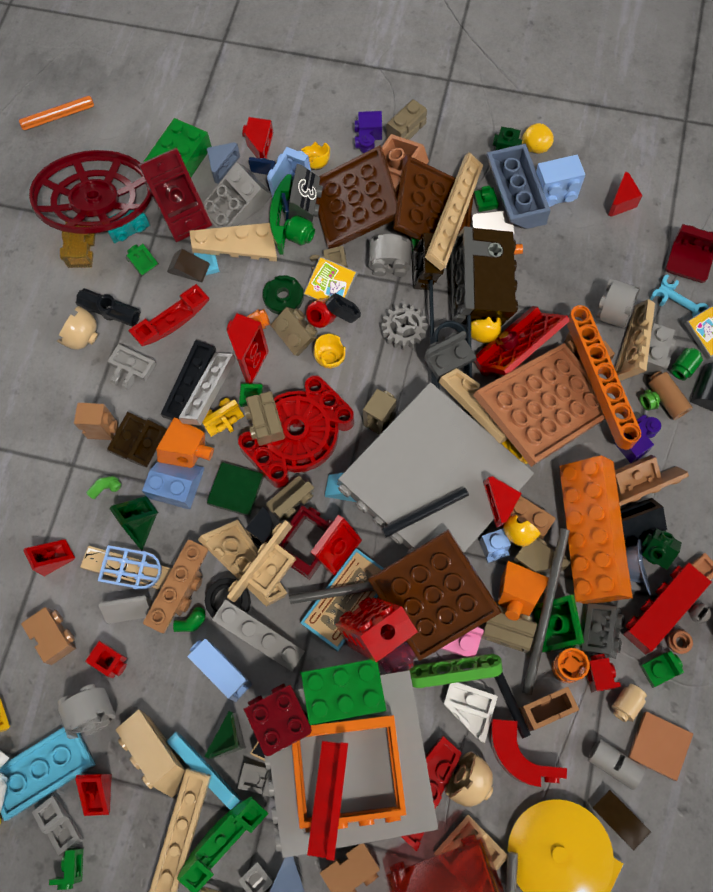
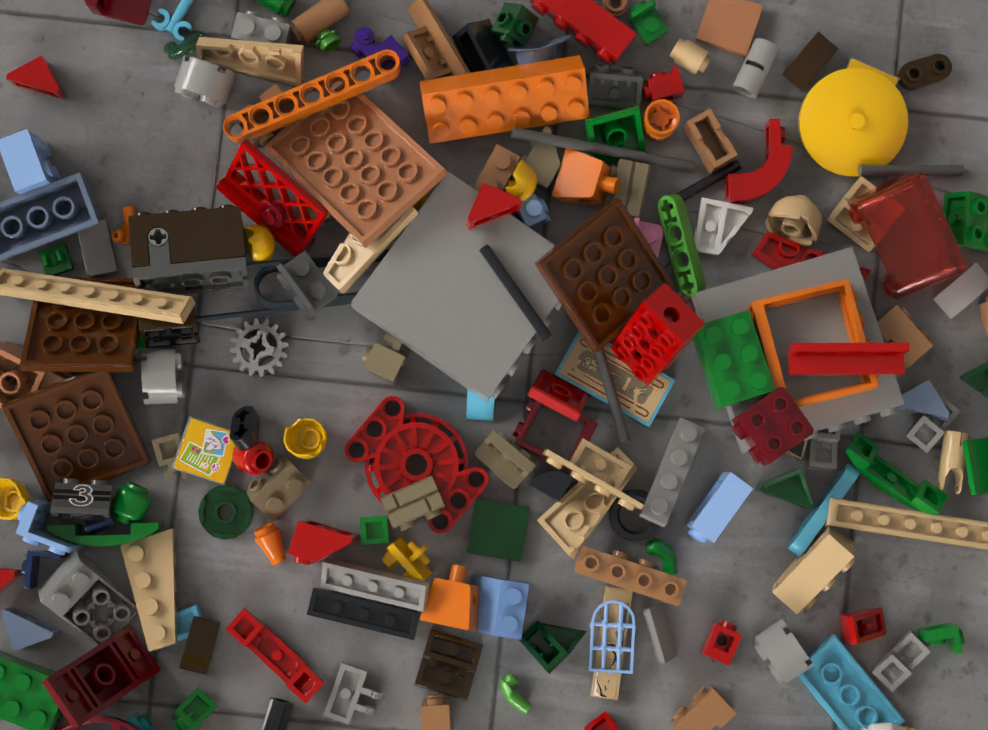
camera: 105 degrees left, 15 degrees up
(645, 293) = (184, 48): none -> clear green arm

